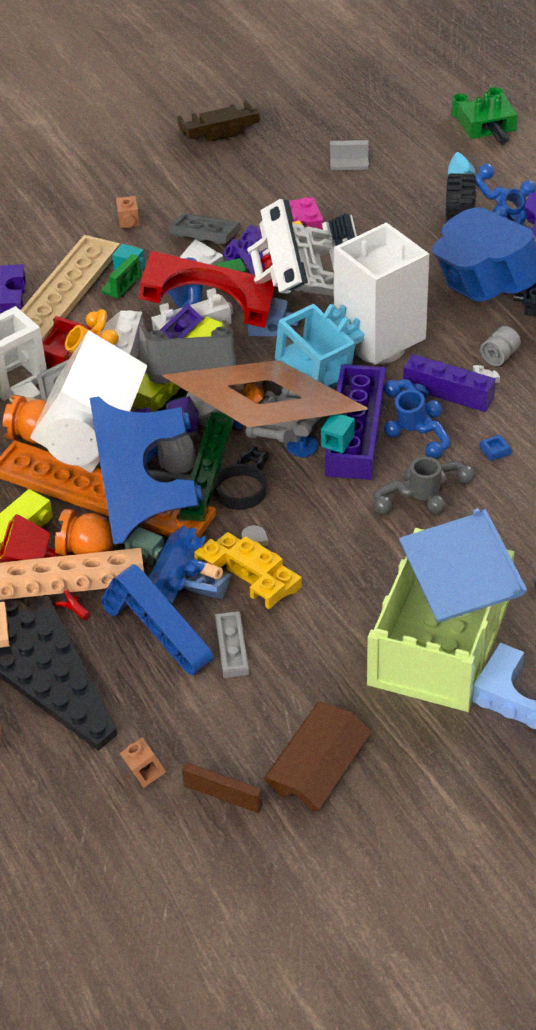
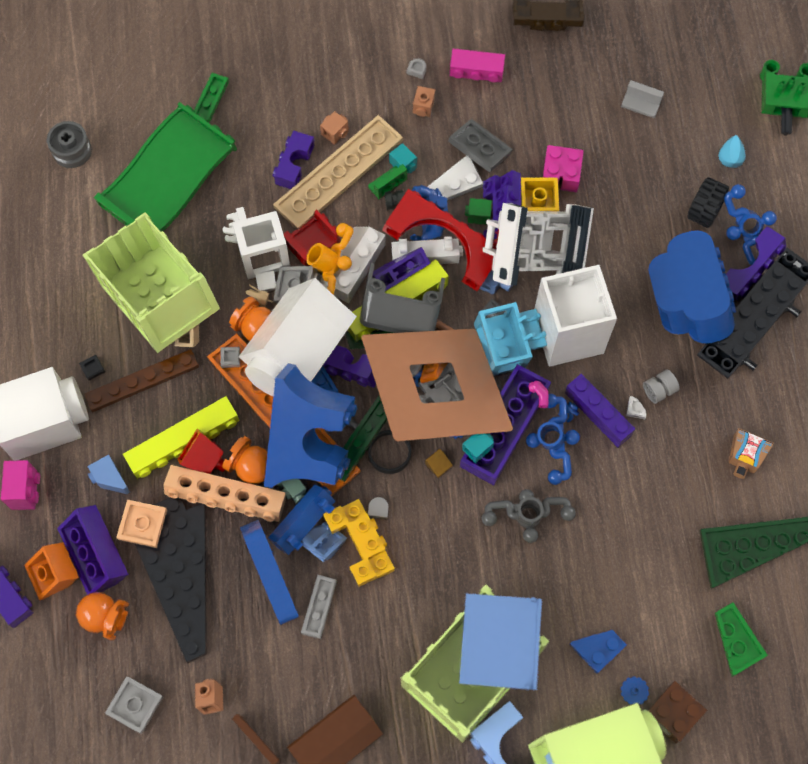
camera: 20 degrees right, 25 degrees up
(17, 459) = (230, 357): none -> light grey tile
(42, 257) = (334, 127): none -> nougat brick
(50, 808) = (134, 705): none -> light grey plate
(74, 605) = (220, 520): red bar -> none
(106, 196) = (416, 68): none -> light grey tile
(131, 291) = (393, 199): none -> pearl dark grey wheel
(168, 175) = (477, 65): none -> dark pink brick
(177, 455) = (360, 398): light grey helmet -> none
(195, 566) = (324, 531): arm -> none
(299, 478) = (438, 463): none -> pearl gold slope
(383, 375) = (542, 392): none -> dark pink arm
(495, 447) = (606, 492): blue tile -> none

